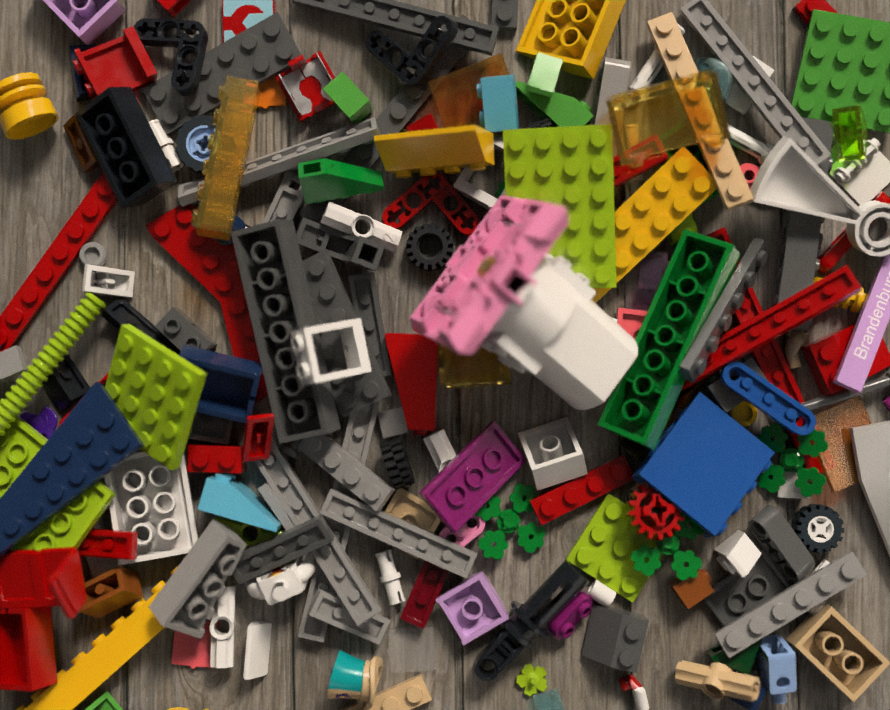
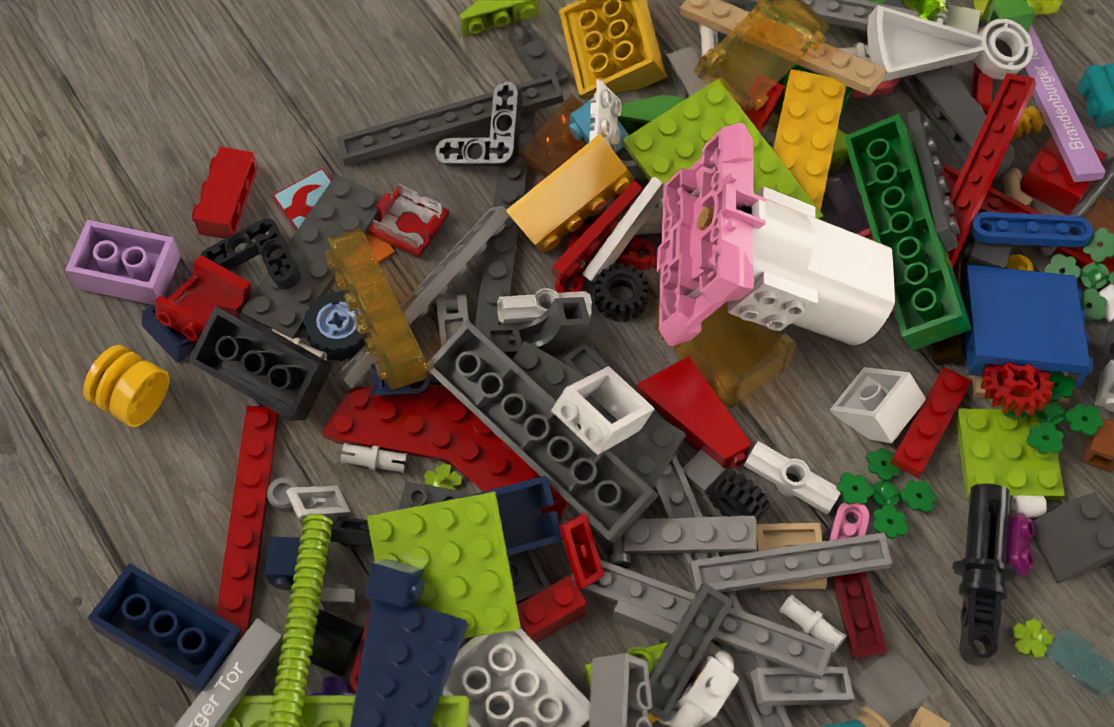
camera: 35 degrees left, 25 degrees down
(59, 308) = (282, 561): none -> dark blue brick
(81, 145) = (209, 392): reddish brown plate -> none
(85, 359) = (339, 598): none -> light grey plate
(110, 387) = (395, 583): none -> dark blue brick
(169, 268) = (374, 458): none -> white pin
(208, 315) = (443, 478): none -> lime plant
(236, 501) = (604, 633): medium azure slope -> none
(332, 179) = (487, 277): green slope -> none
(348, 98) = (456, 204): bright green slope -> none
(448, 191) = (590, 239): none -> red plate
(458, 205) = (626, 229): none -> white tile
(472, 477) = (822, 464): magenta tile -> none
(473, 607) = (919, 596): lavender slope -> none
(499, 105) = (604, 112): none -> white hinge
(544, 74) = (624, 85): slope -> none

